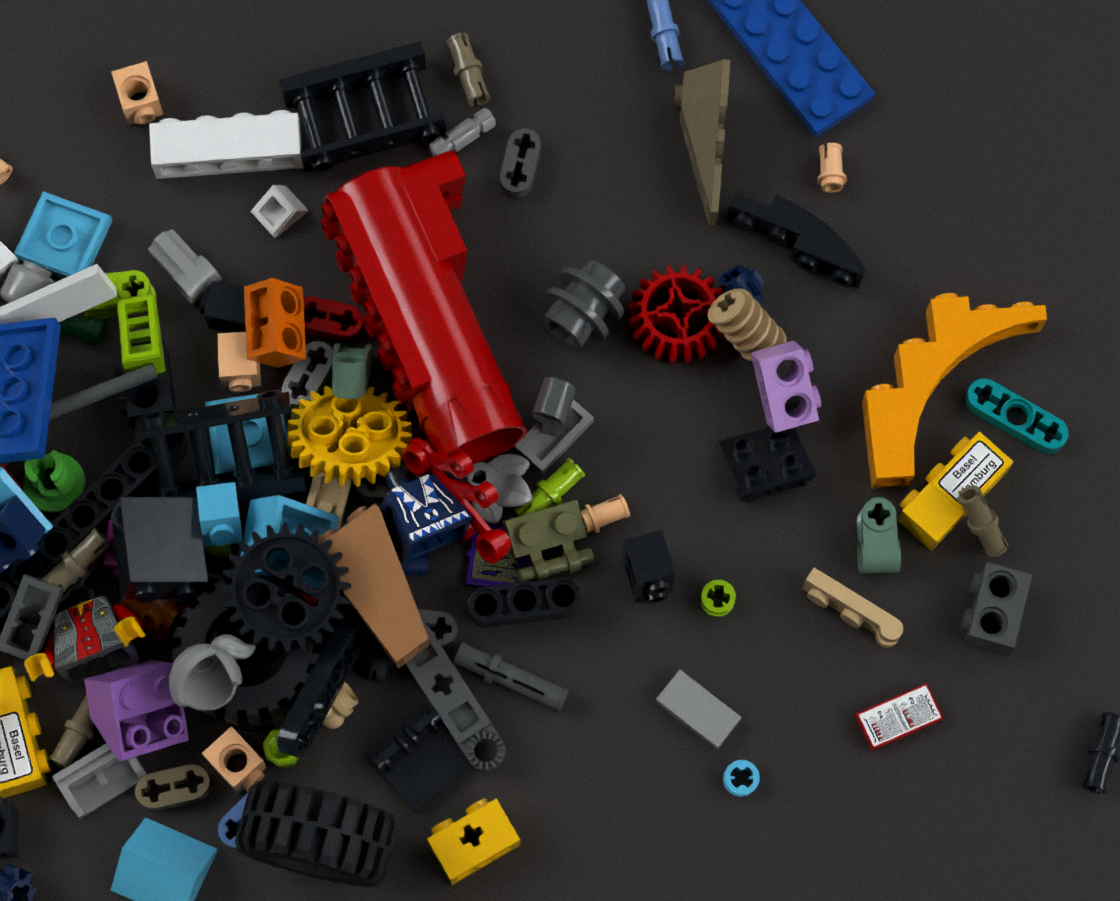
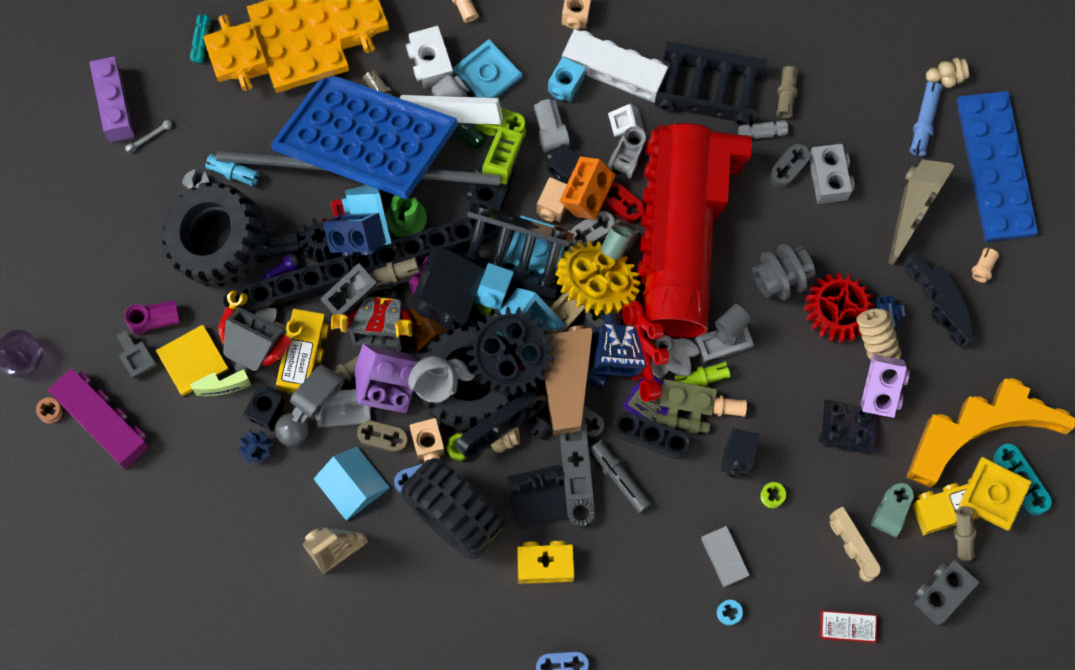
camera: 25 degrees right, 0 degrees up
(52, 791) = (309, 402): none -> dark grey beam
(168, 181) = (566, 70): none -> medium azure brick
(303, 254) = (627, 156): none -> light grey piece
(569, 151) = (824, 173): none -> light grey brick
(994, 452) = (995, 493): none -> yellow tile

